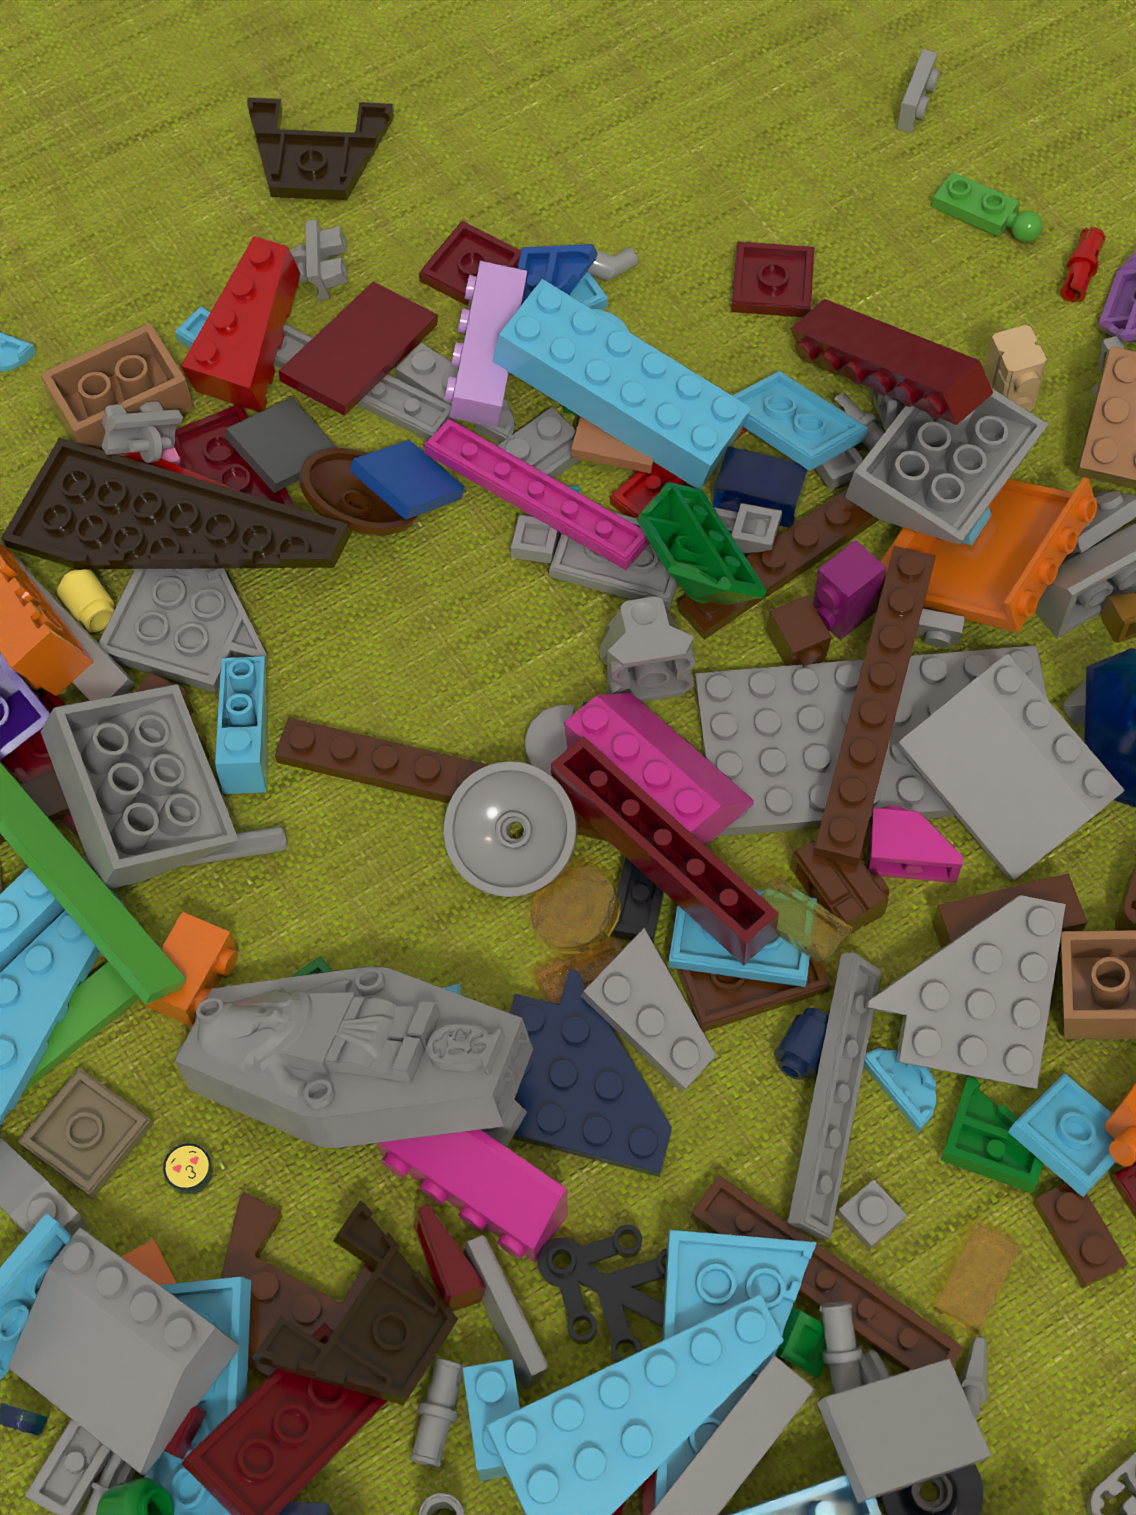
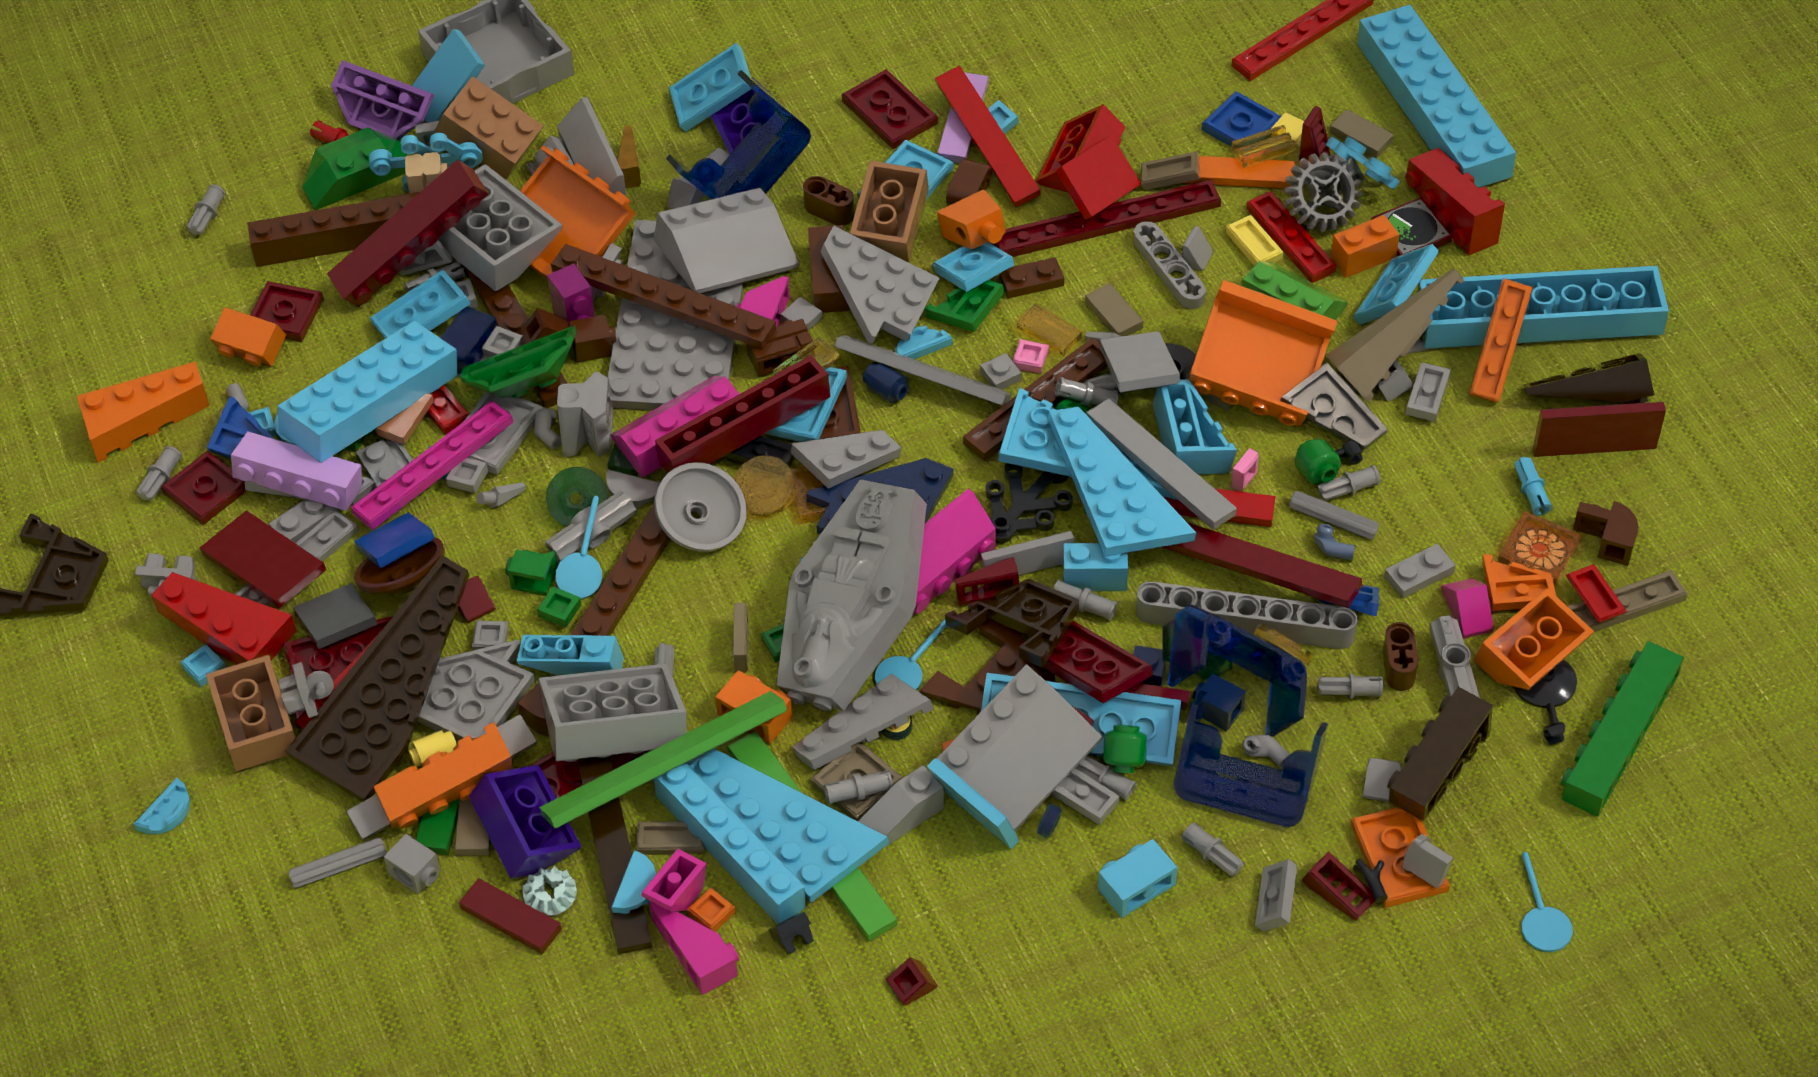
camera: 80 degrees left, 10 degrees down
(51, 1131) = (858, 786): none -> light grey pin
(188, 1131) = (875, 710): none -> light grey wing
(281, 627) = (489, 633): none -> light grey tile
(281, 1162) = (904, 667): none -> medium azure piece
(303, 929) = (740, 637): none -> dark tan tile
(332, 694) = (559, 607): none -> green plate
(334, 593) = (475, 600): none -> dark red slope
(384, 649) = (531, 571): none -> green window
(394, 702) = (581, 572): none -> medium azure piece
(466, 703) = (608, 517): none -> light grey piece
(481, 214) = (159, 473): none -> light grey axle
(498, 669) = (570, 481): none -> clear green dish
(511, 586) = (500, 494): none -> light grey bar
(569, 161) = (140, 407): none -> orange wedge
(706, 245) = (247, 337): none -> orange brick
(783, 572) = (542, 324): none -> reddish brown brick
(906, 277) = (320, 230): none -> reddish brown brick
(915, 100) = (149, 197): light grey plate -> none
(915, 903) = (802, 310): none -> light grey tile
(915, 1256) = (1031, 356): none -> bright pink tile
(916, 154) = (206, 209): none -> light grey axle
(986, 208) = (269, 181): bright green plate -> none
(1040, 290) = (344, 167): none -> green wedge
(1040, 1378) = (1114, 311): none -> dark tan tile
(1071, 403) = (382, 161): none -> medium azure plant

